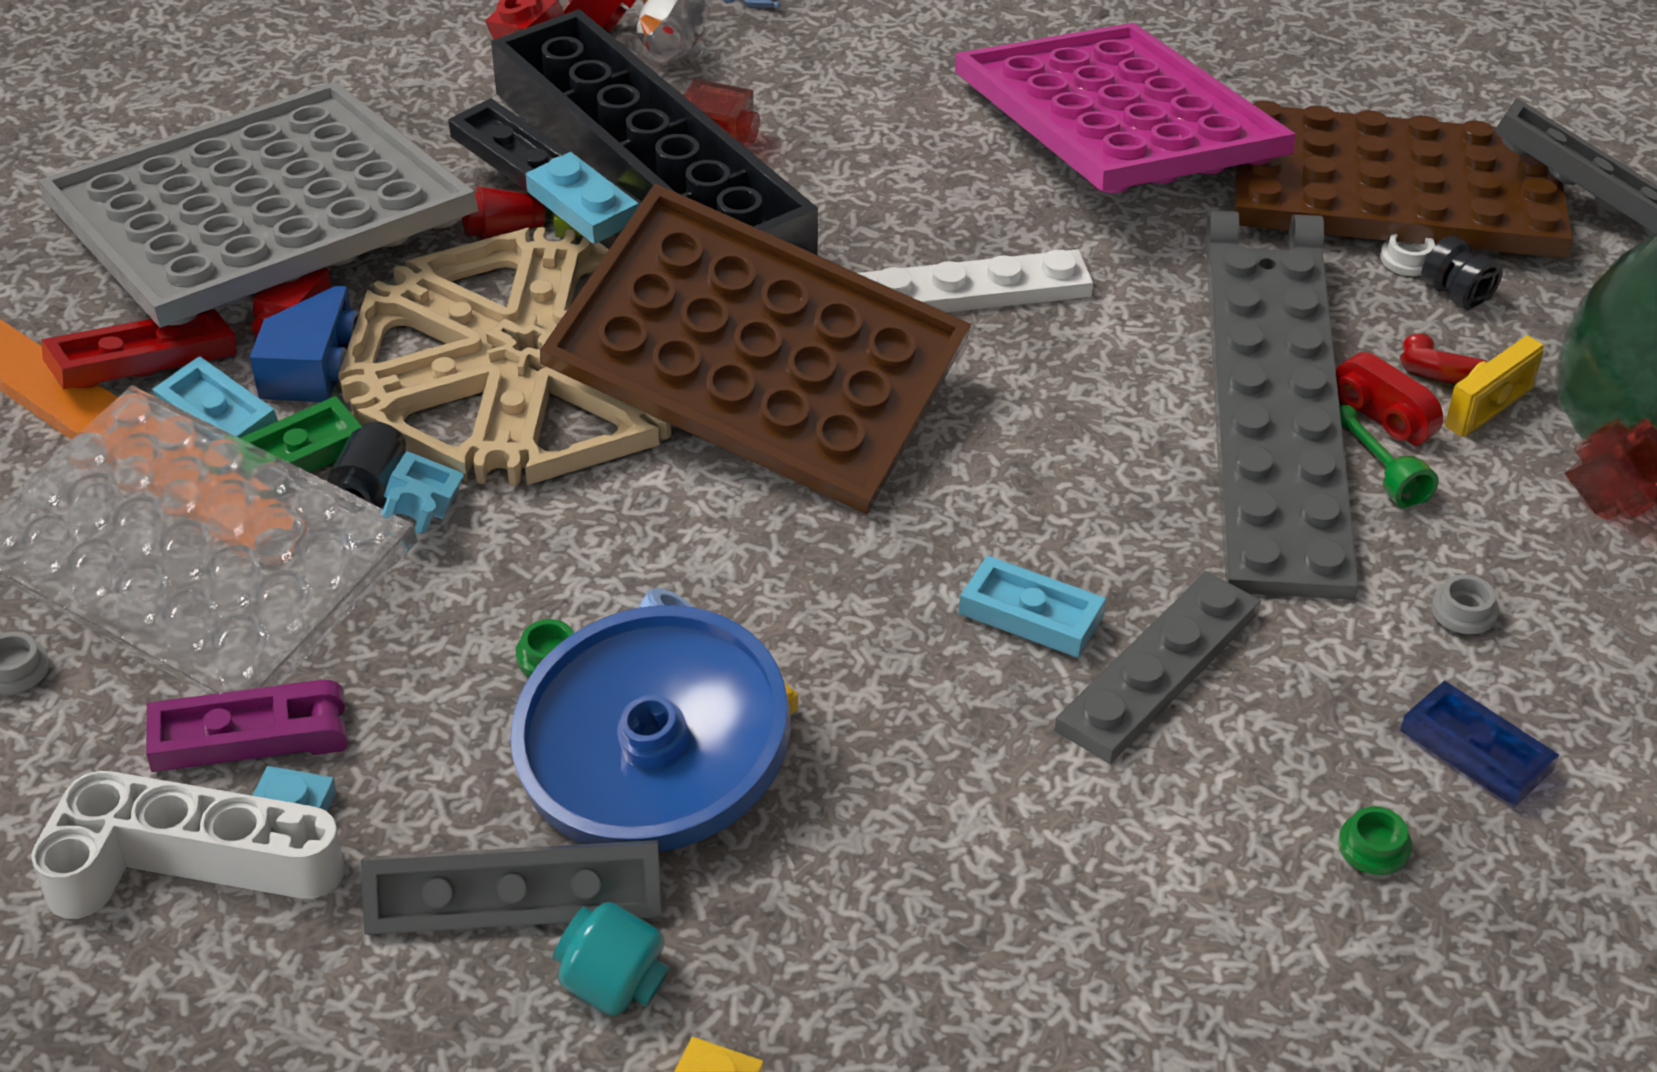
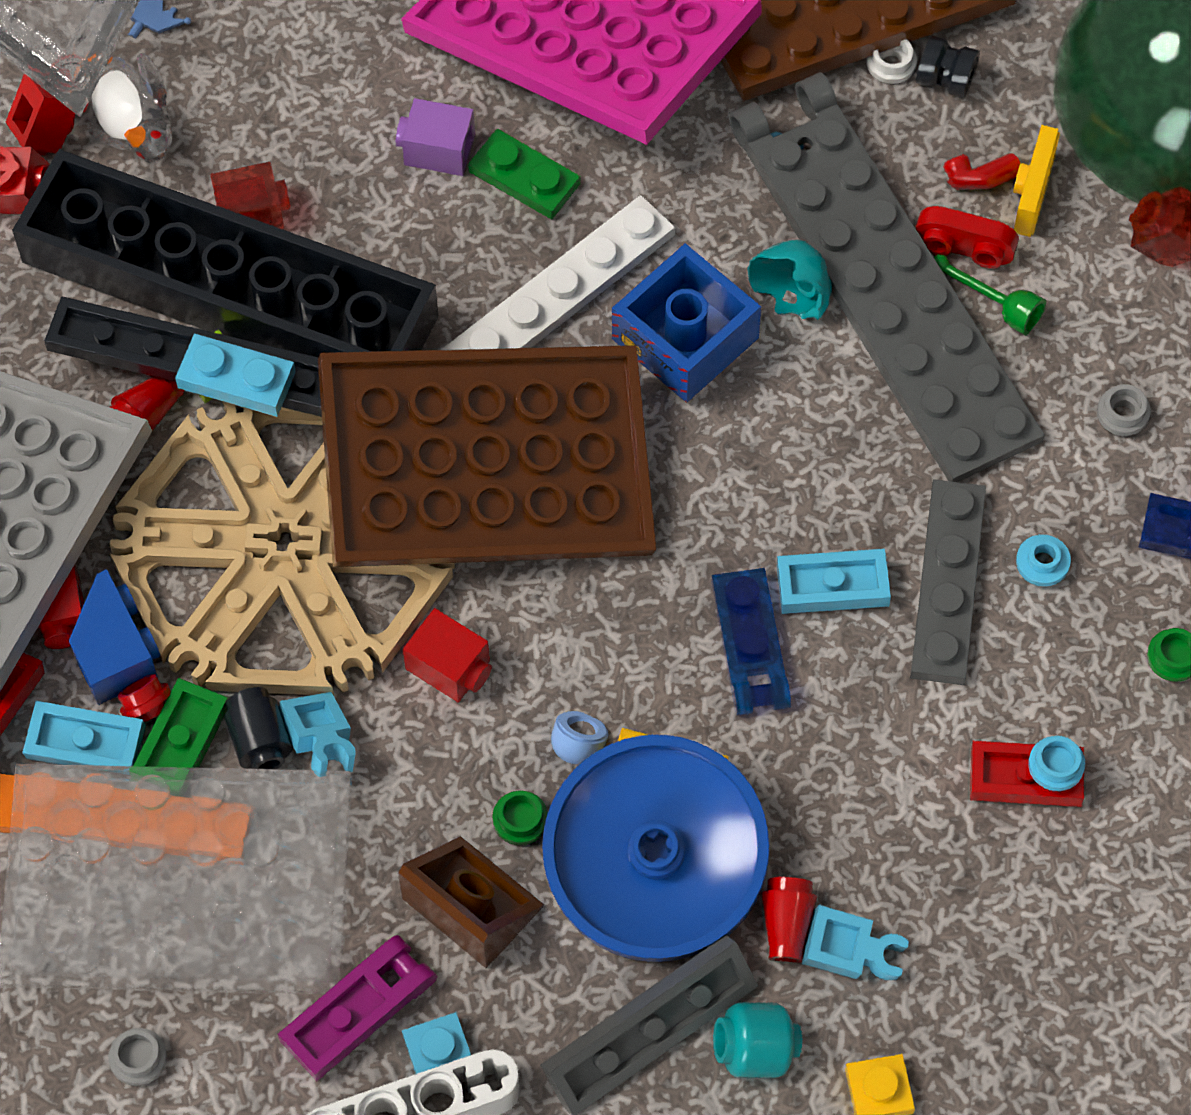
camera: 30 degrees left, 20 degrees up
(292, 397) = (144, 698): none -> red plate
(434, 686) = (468, 898): none -> reddish brown slope
(593, 489) = (448, 656): none -> red brick
(745, 864) = (788, 915): none -> red cone
(787, 921) = (844, 944): none -> medium azure plate
(906, 620) = (750, 640): none -> clear blue plate
(922, 140) = (436, 136): none -> medium lavender brick
(983, 200) = (524, 174): none -> green plate
(1041, 341) = (686, 322): none -> blue brick
(1117, 867) = (1002, 775): none -> red plate
(1152, 858) = (1056, 763): none -> medium azure plate
(1178, 347) = (792, 268): none -> teal hair
(1279, 703) = (1040, 573): none -> medium azure plate

